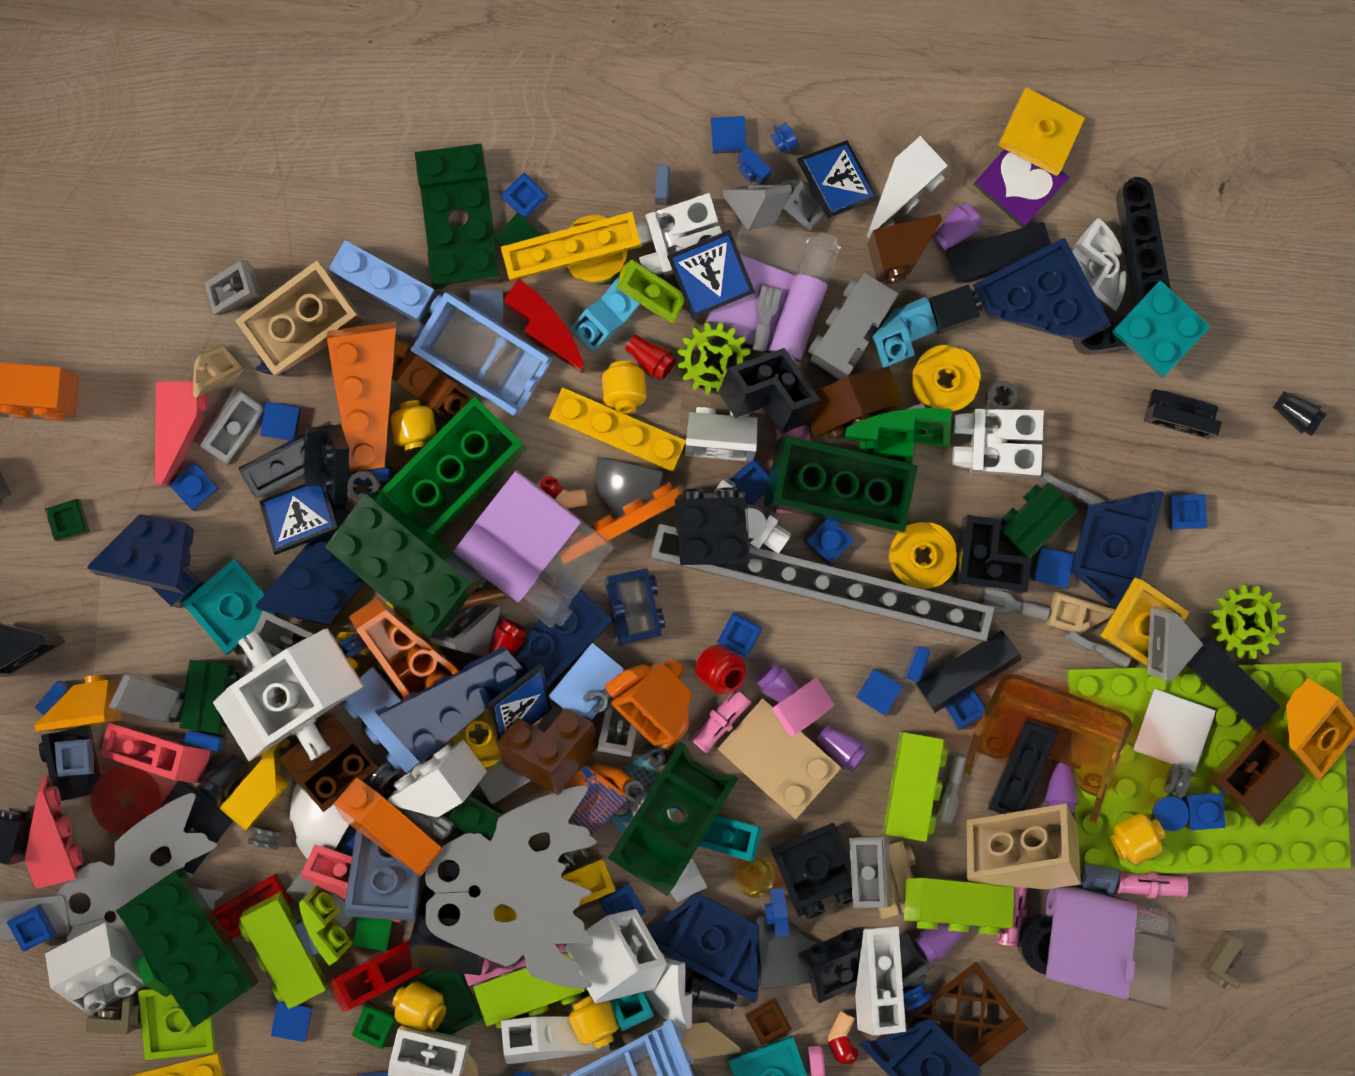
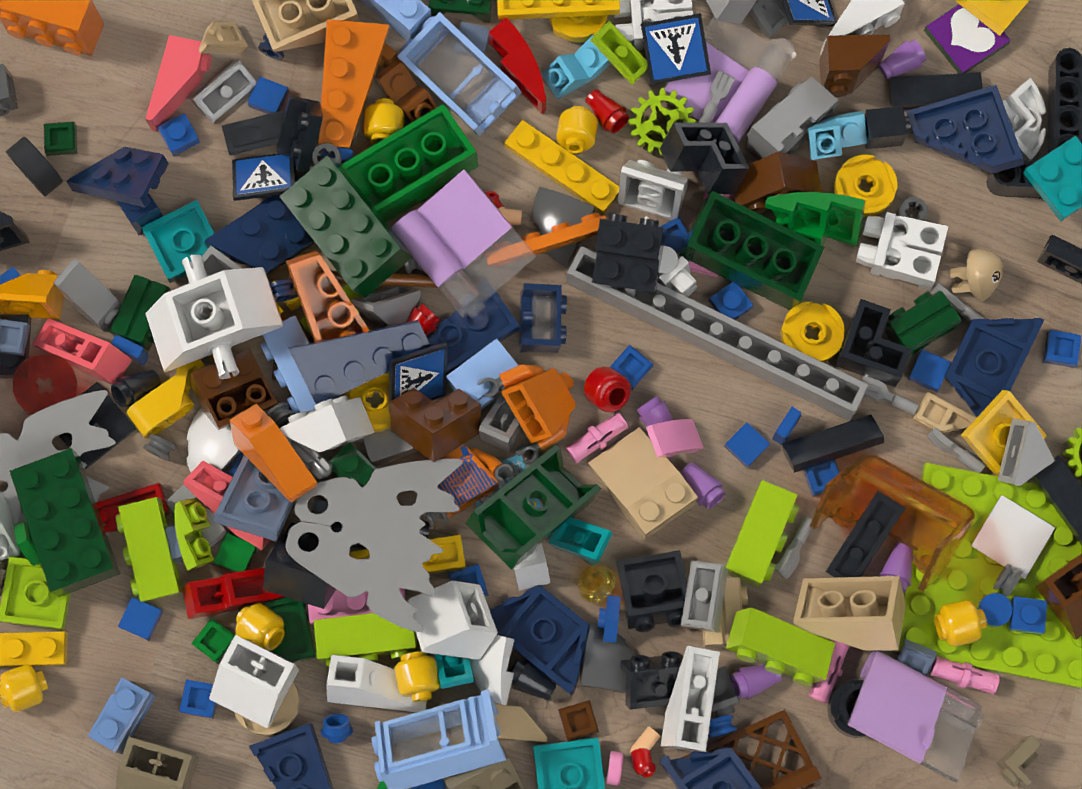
camera: 15 degrees right, 10 degrees down
(48, 563) = (34, 166): none -> black tyre
(1087, 454) = (981, 274): none -> tan piece

